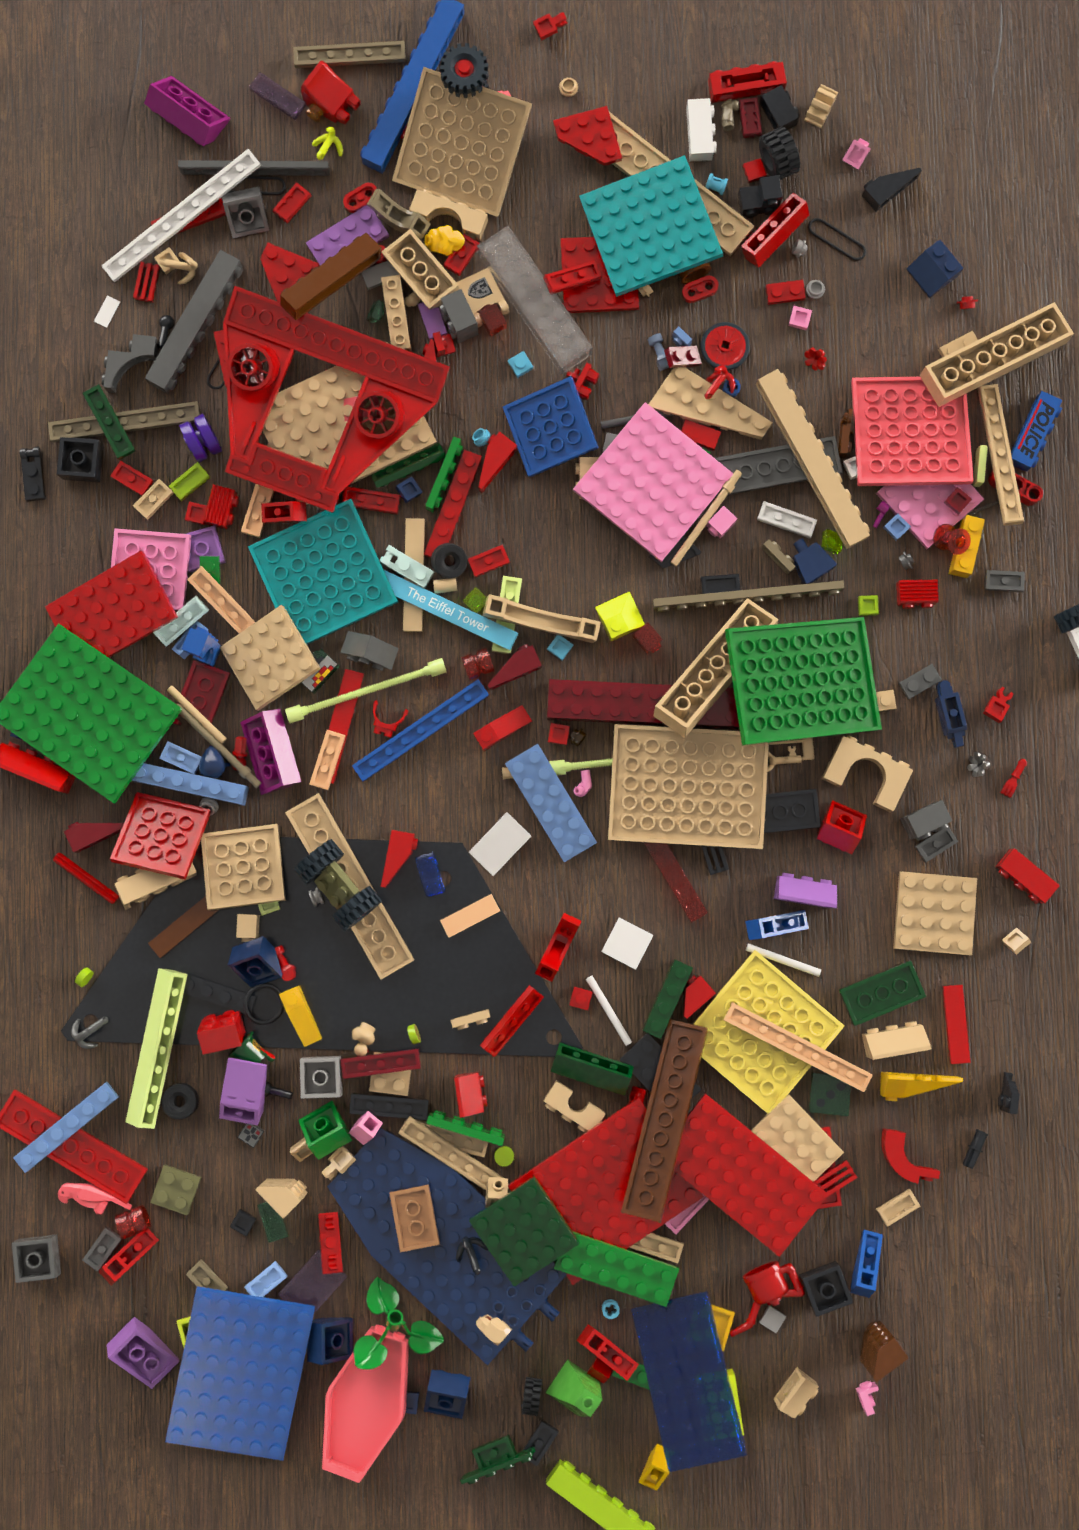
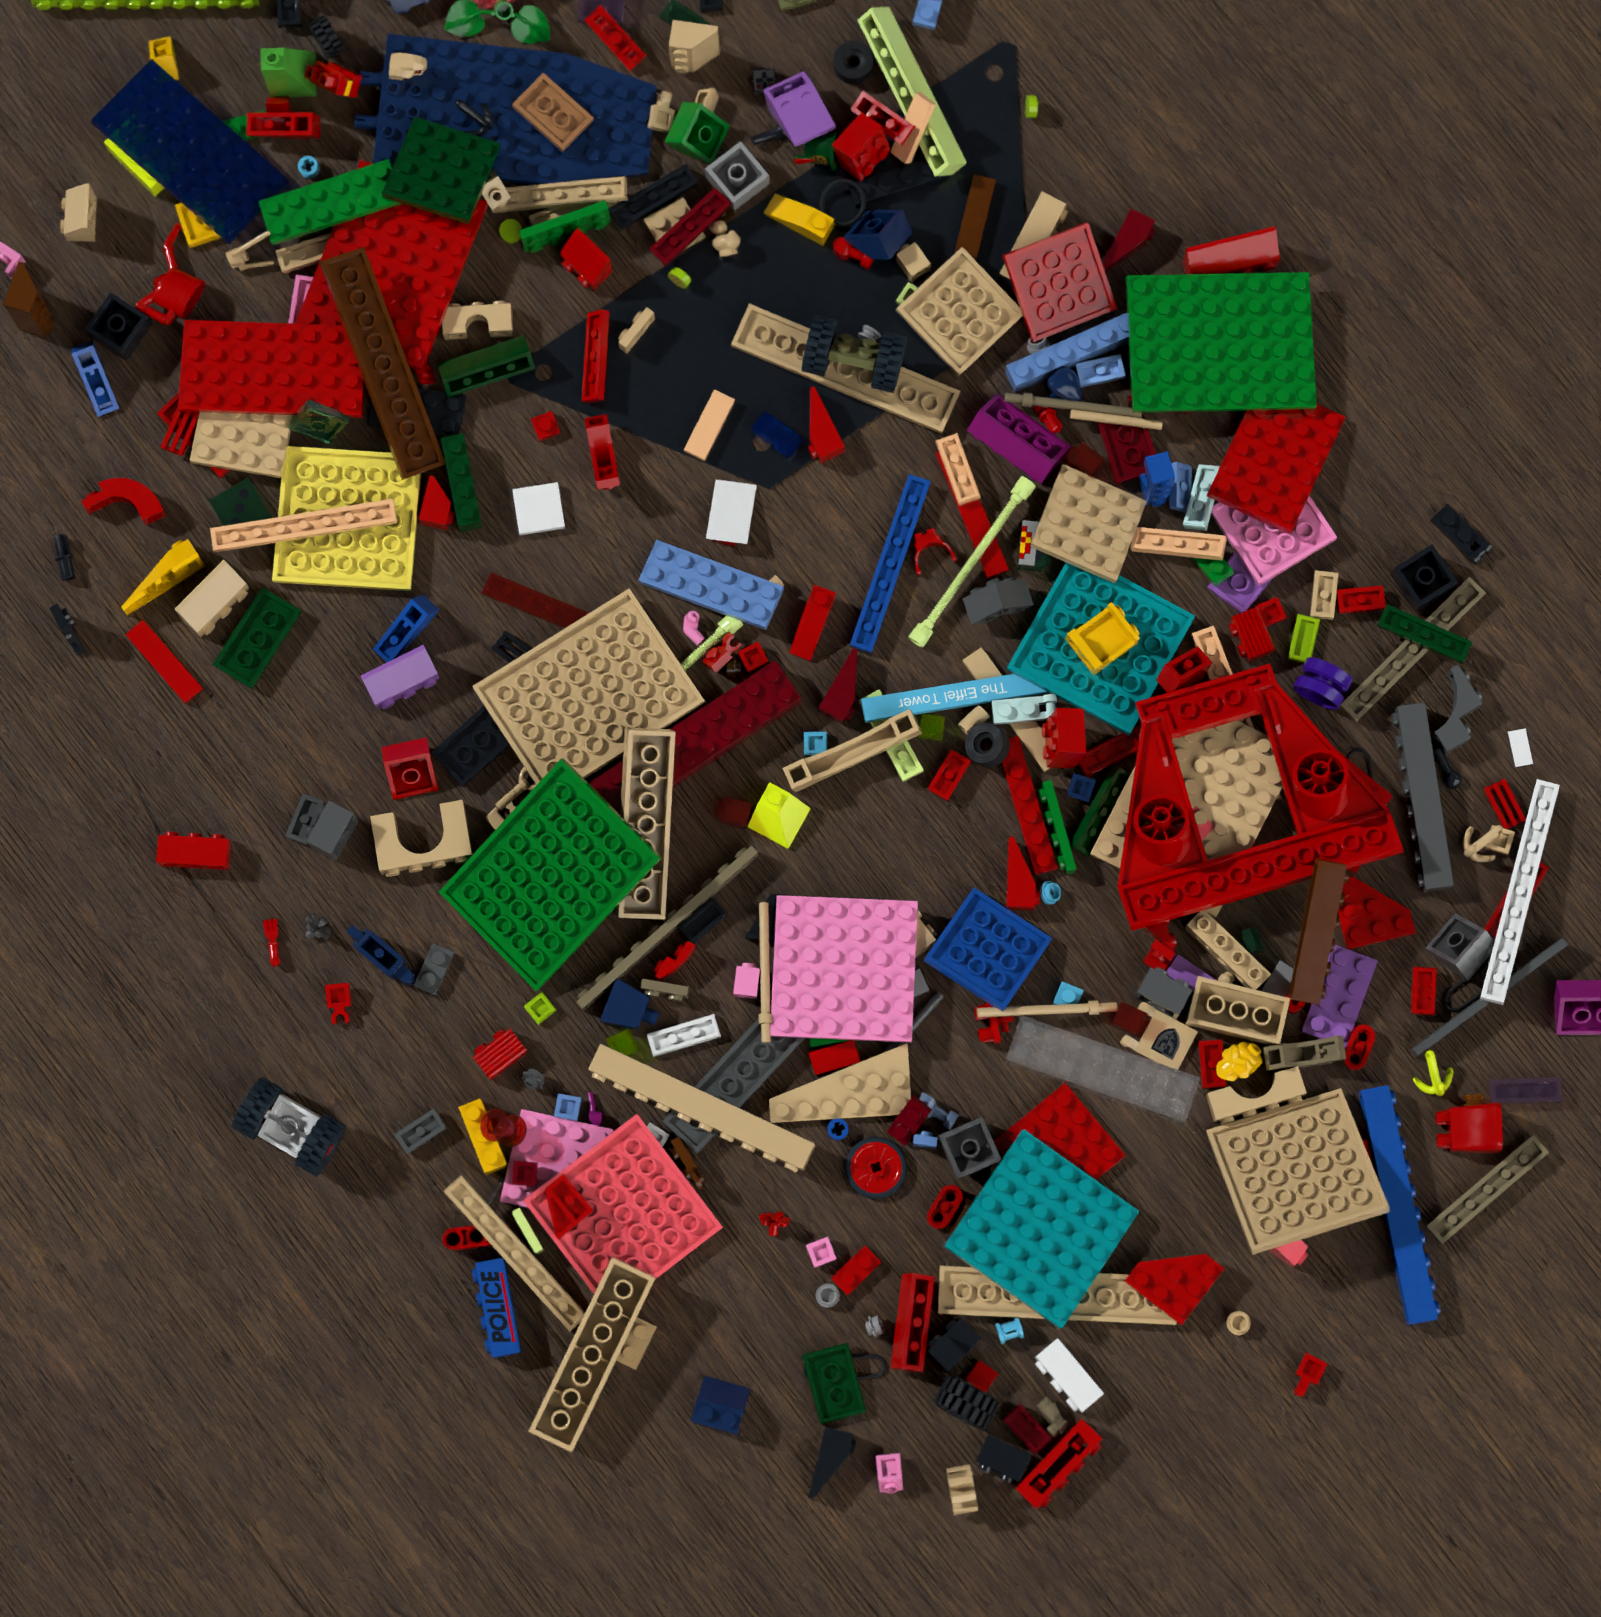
camera: 145 degrees right, 5 degrees down
(79, 1037) = (988, 56): dark grey piece -> none
(85, 878) = (1102, 196): red axle -> none
(175, 1019) = (919, 116): none -> light nougat tile
(187, 1032) = (892, 123): none -> red slope
(239, 704) = (1084, 459): none -> clear red brick
(319, 572) = (1103, 638): none -> yellow panel
(365, 1128) = (660, 160): bright pink brick -> none
(396, 524) = (1064, 738): none -> red brick
(464, 70) = (1339, 1229): black plate -> none
(478, 664) = (883, 664): clear red wheel -> none
(512, 344) = (1090, 1007): none -> tan bar
(548, 1359) = (334, 78): none -> red hips
(572, 277) = (1080, 1116): red tile -> none
(581, 751) = (720, 655): none -> red plate
(609, 1011) = (508, 433): white bar -> none
(657, 310) = (969, 1148): none -> flat silver slope
(705, 1278) = (238, 256): none -> tan plant
(719, 376) = (857, 1128): red piece -> none
(736, 1112) = (319, 421): none -> clear green tile
(764, 569) = (669, 966): none -> red slope
(772, 1319) = (148, 266): light grey tile -> none
(784, 960) = (374, 602): white bar -> none
(851, 232) = (834, 1383): none -> dark green tile
(886, 700) = (455, 925): tan plate -> none
(898, 1207) = (100, 450): tan plate -> none
(935, 913) = (258, 753): tan plate -> none
(948, 456) = (565, 1206): none -> red wing
(967, 302) = (661, 1394): red plate -> none
(1016, 941) = (160, 781): tan plate -> none

